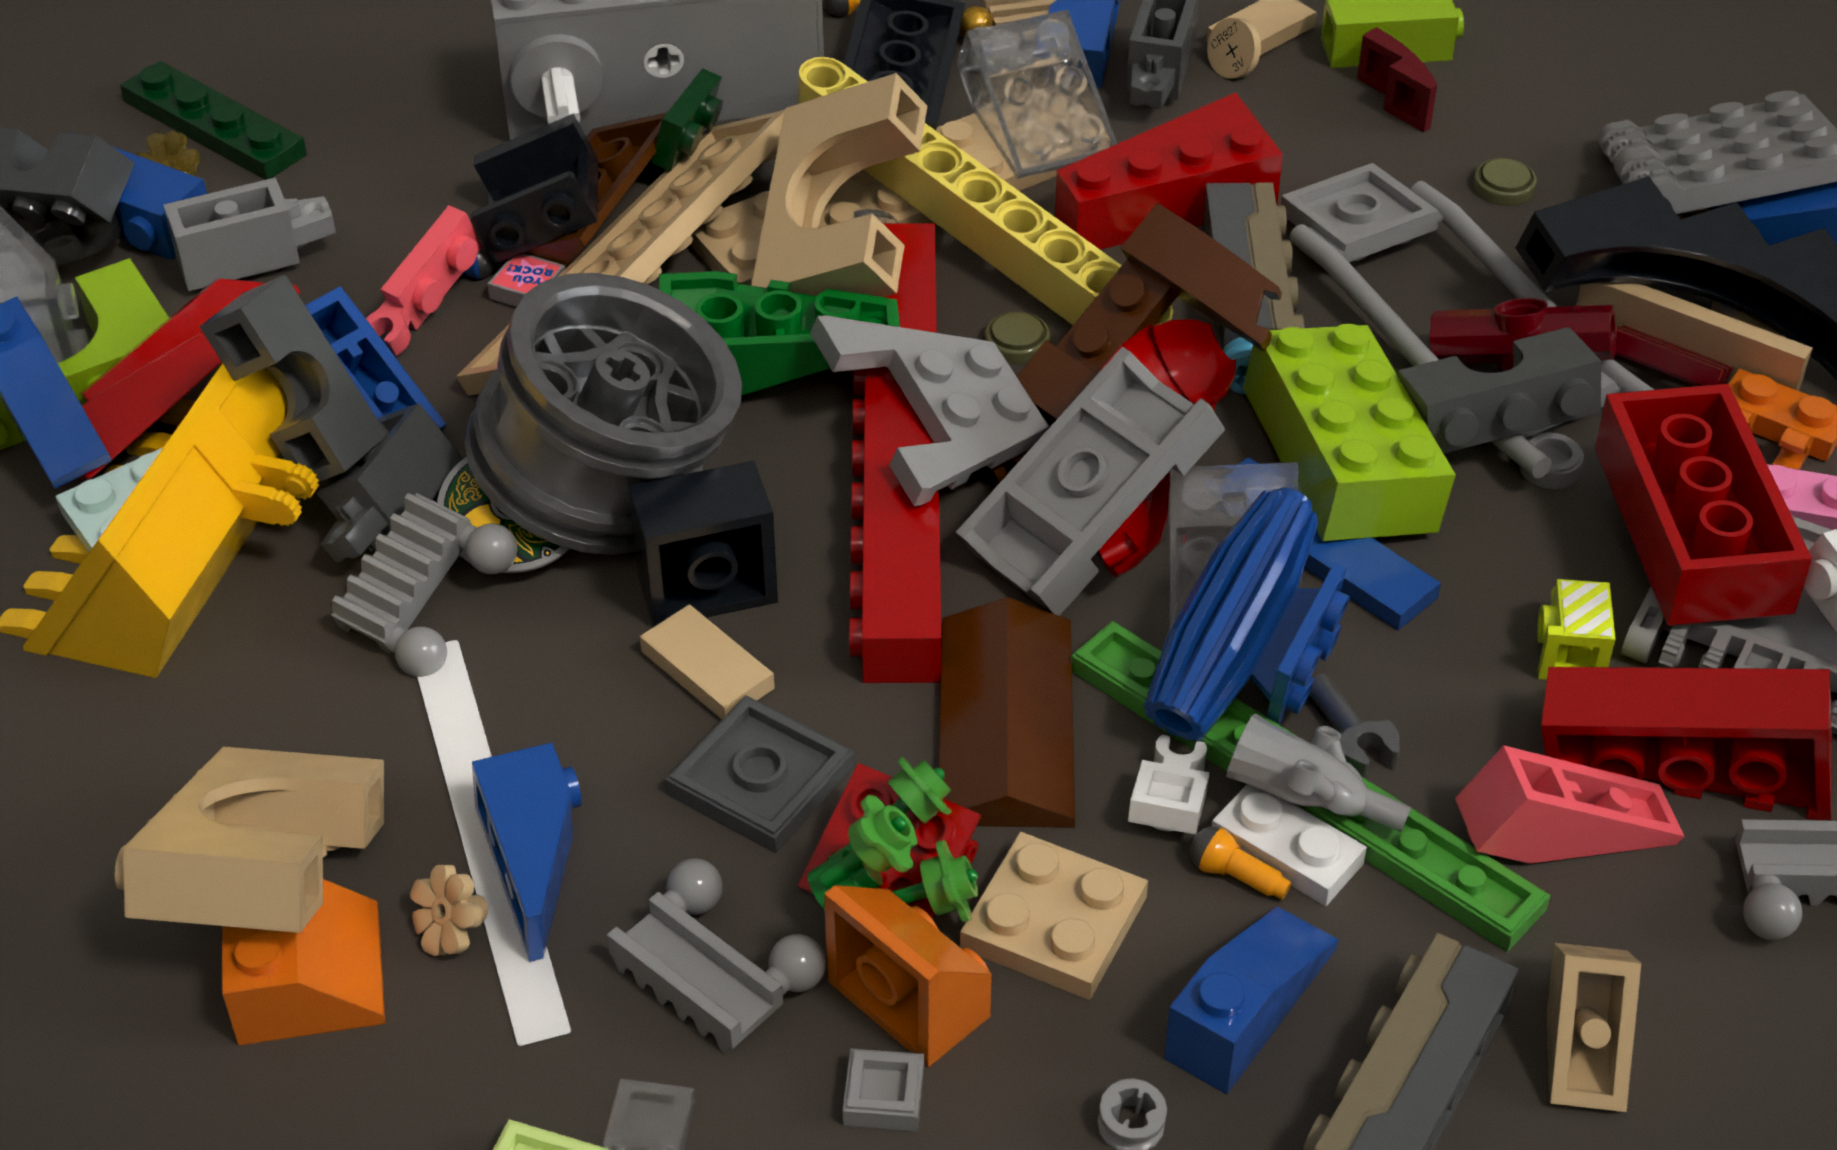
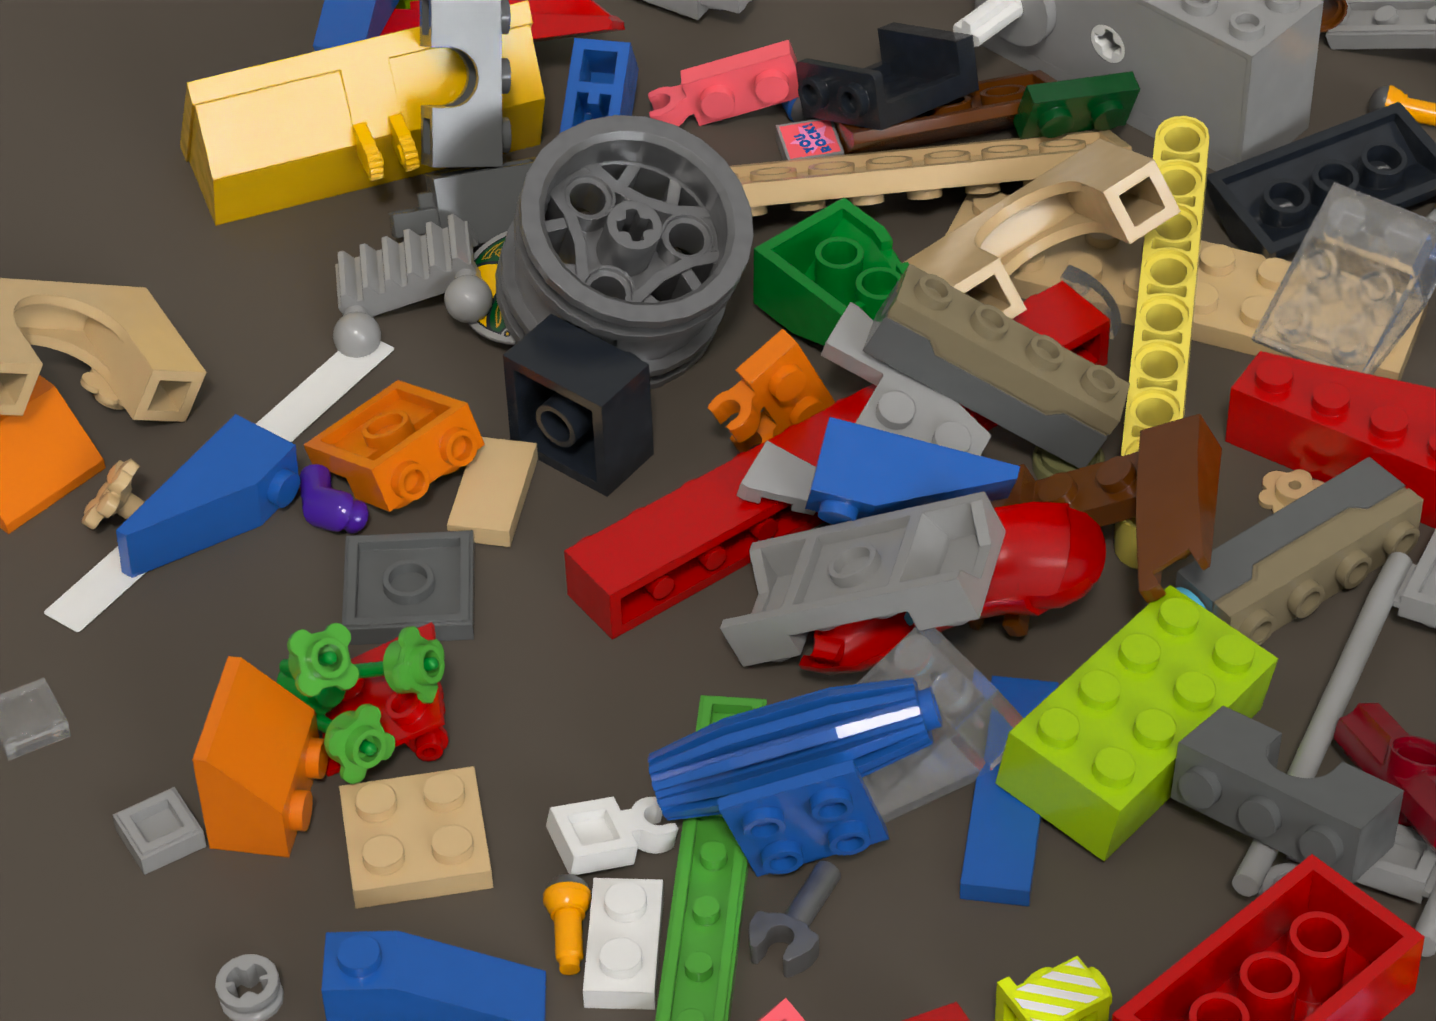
camera: 55 degrees right, 0 degrees up
(602, 684) = (398, 444): none -> orange plate
(615, 773) = (329, 507): none -> dark purple arm
(702, 971) = (176, 652): light grey gear -> none
(829, 434) = (775, 381): none -> orange plate
(951, 288) = (997, 367): none -> dark tan piece
(1002, 408) = (881, 472): none -> blue slope
(1008, 715) = (604, 698): reddish brown slope -> none
(1309, 773) = (672, 900): light grey piece -> none

